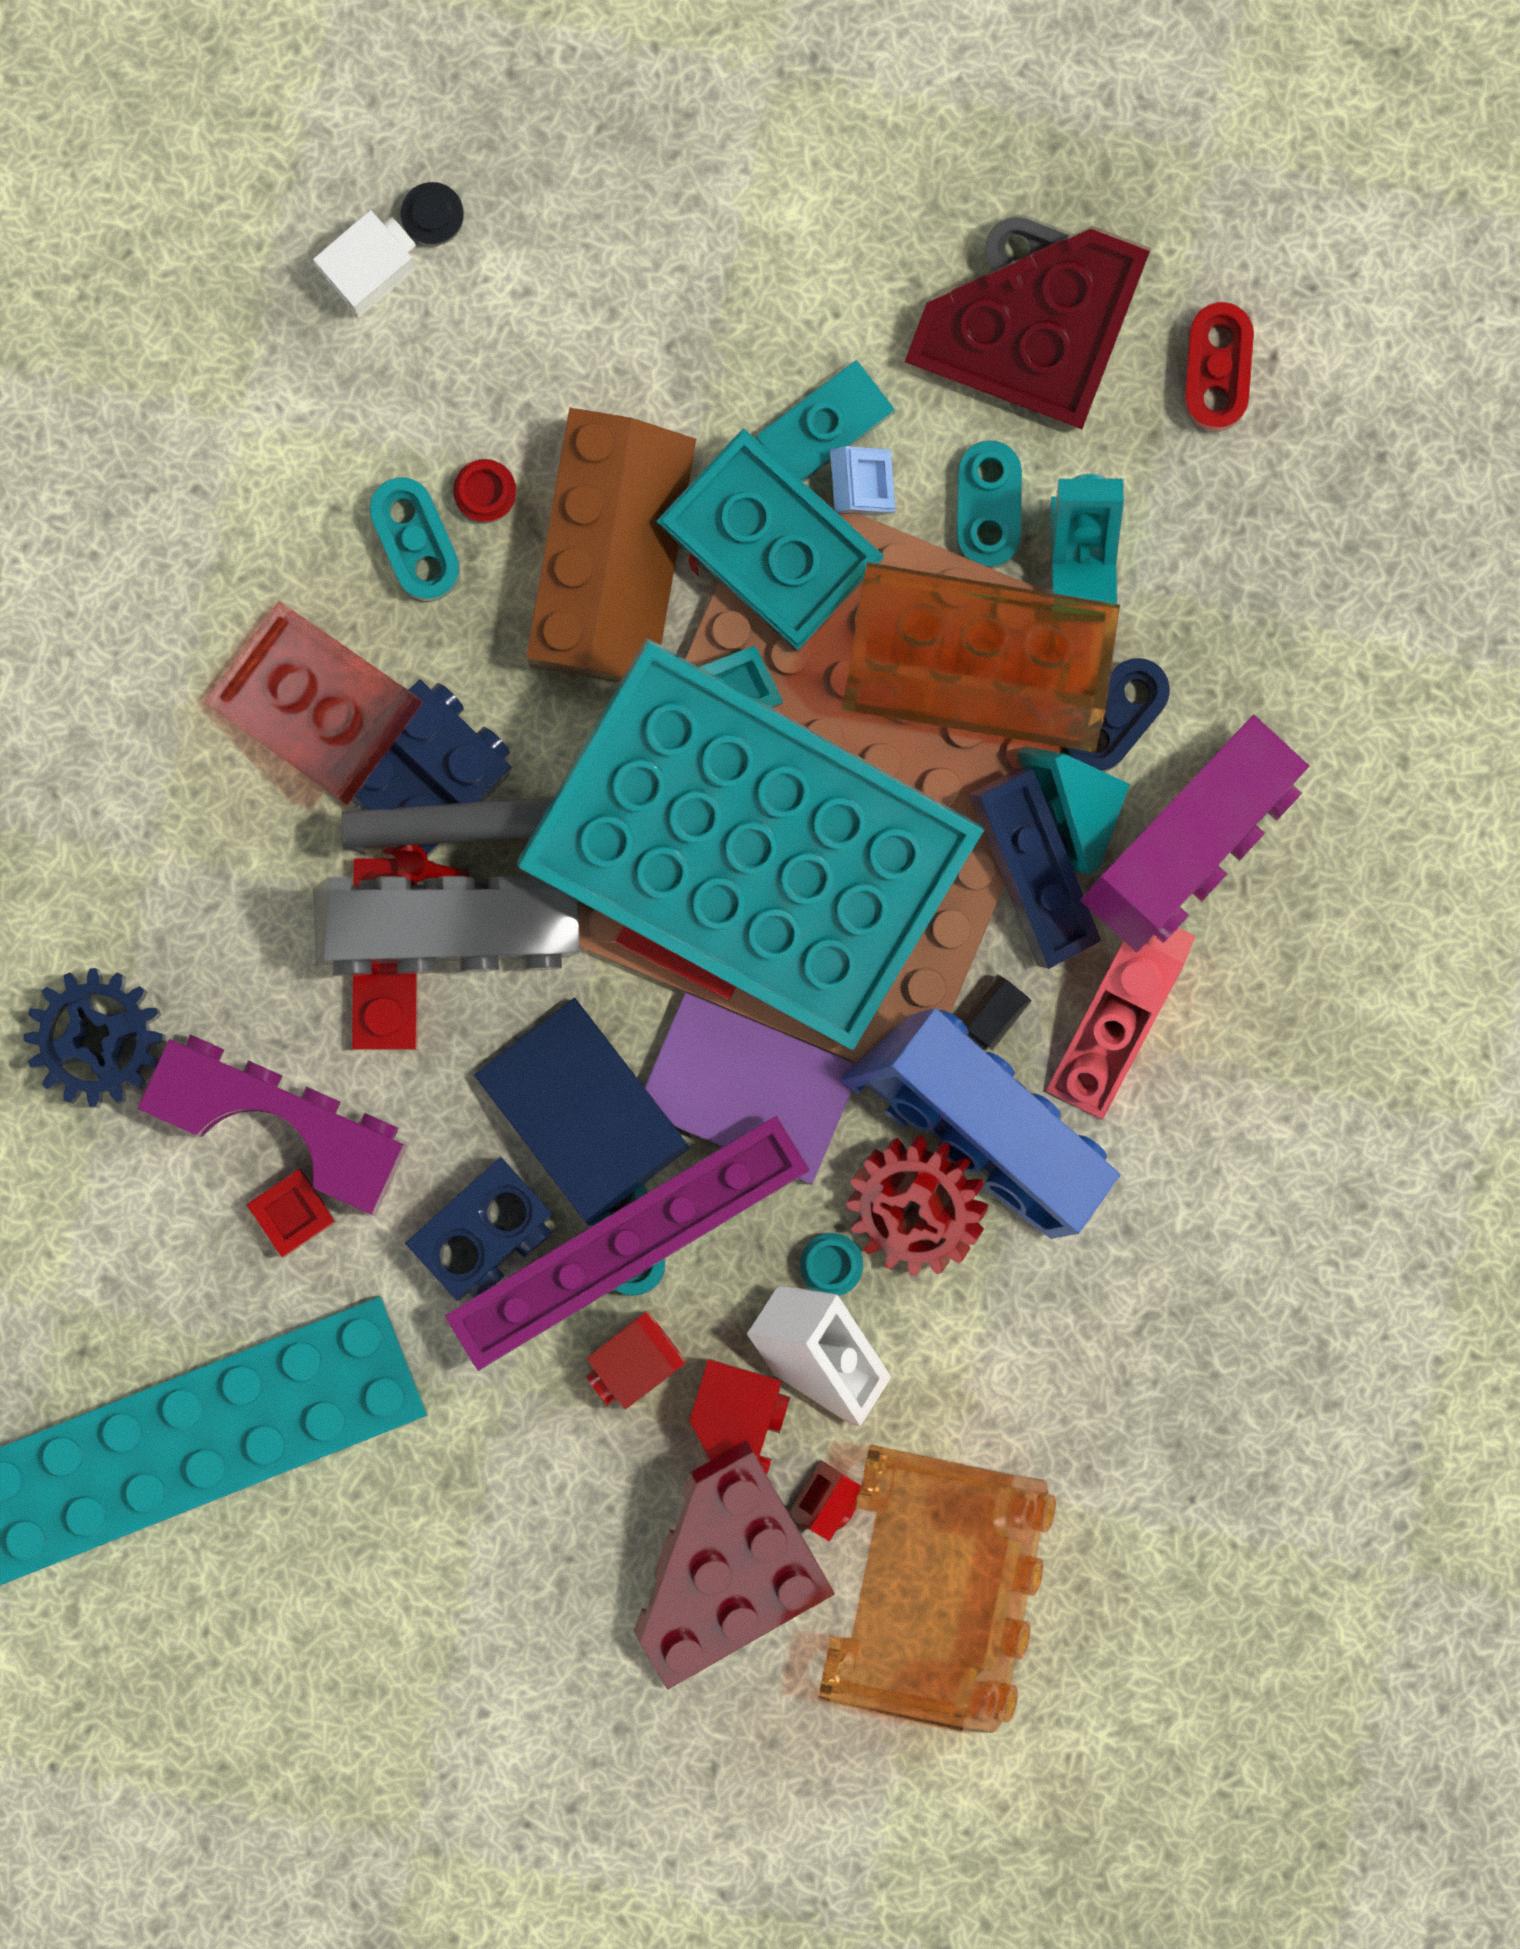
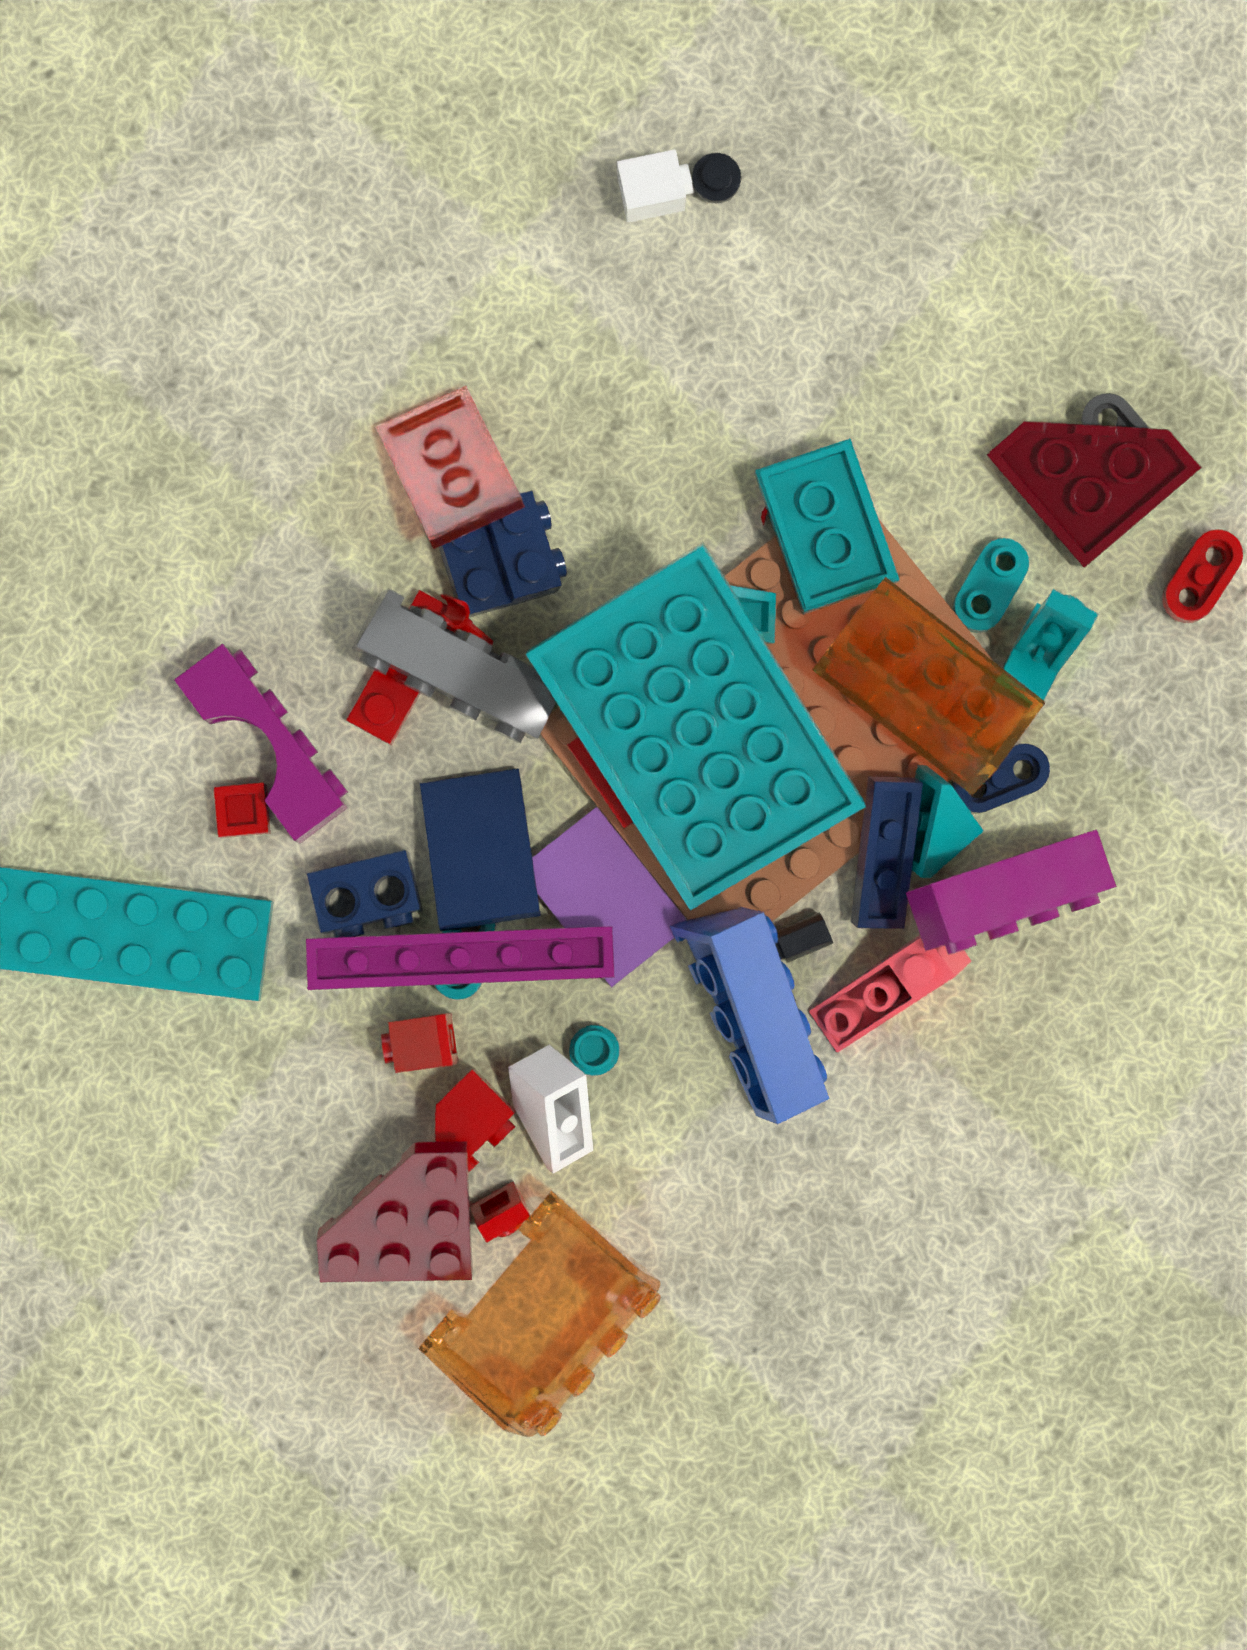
camera: 25 degrees right, 0 degrees up
(68, 1050) = (174, 593): dark blue gear -> none
(416, 540) = (582, 395): teal plate -> none
(441, 823) = (490, 596): dark grey piece -> none
(484, 491) = (648, 387): red plate -> none
(604, 553) = (706, 473): dark orange slope -> none
(827, 420) = (910, 467): teal plate -> none
(862, 480) = (912, 520): light blue tile -> none
(946, 1201) = (698, 1039): red gear -> none

